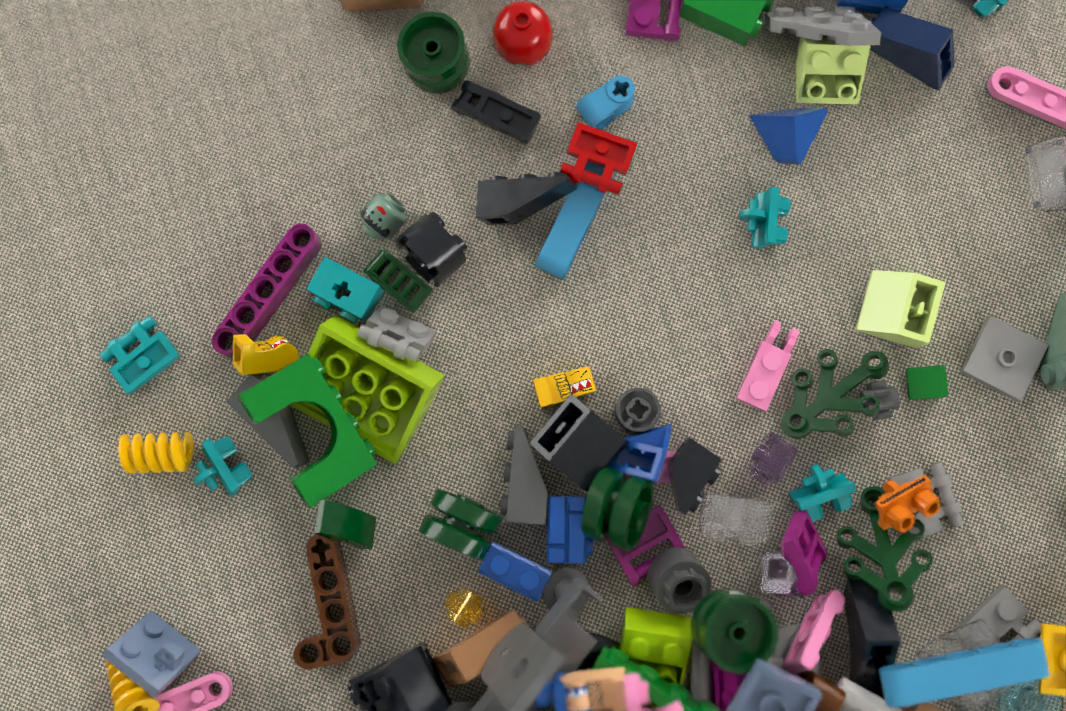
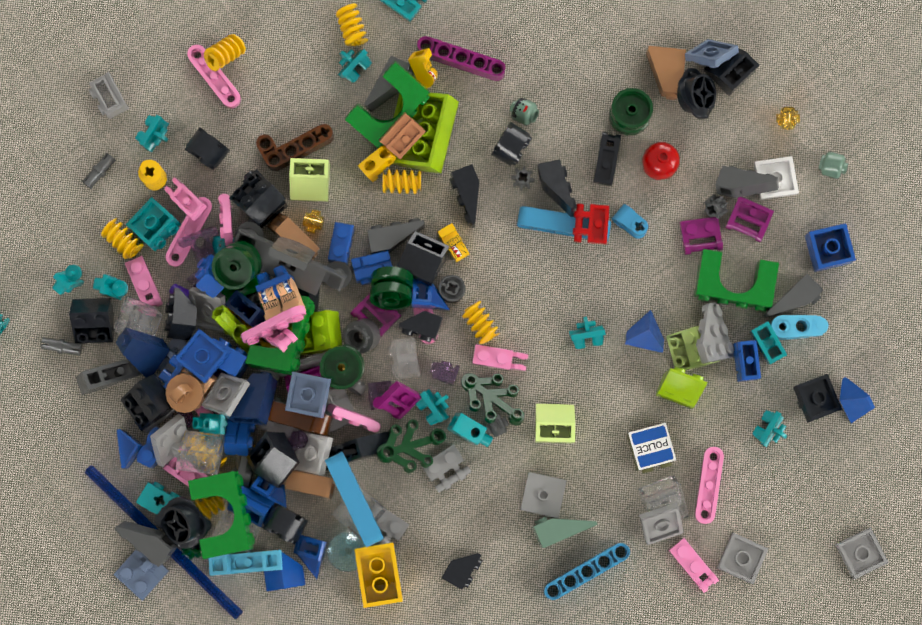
camera: 65 degrees right, 0 degrees up
(152, 653) = (242, 58): sand blue hinge -> none
(334, 277) = (477, 92): teal brick -> none
(345, 524) = (341, 142): dark green slope -> none
(366, 419) = (402, 135): none -> nougat plate
(378, 262) = (496, 116): dark green slope -> none
(392, 594) = (309, 179): none -> yellowish green slope
(397, 334) = (456, 139): light grey plate -> none
(397, 473) = (377, 162): none -> yellow leg
(440, 441) = (401, 181): none -> yellow piece
(459, 526) = (360, 204): dark green wheel -> none
(479, 339) = (467, 186): none -> black slope
(496, 243) = (523, 173): none -> dark grey gear
(706, 379) = (480, 323): none -> yellow piece
(877, 448) = (462, 426): none -> teal torso
(894, 94) = (681, 387): none -> lime slope
(903, 500) = (440, 450): orange hips -> none
(915, 46) = (718, 394): dark blue slope -> none
(926, 382) = (515, 452): green slope -> none
(971, 170) = (651, 448): none -> piece

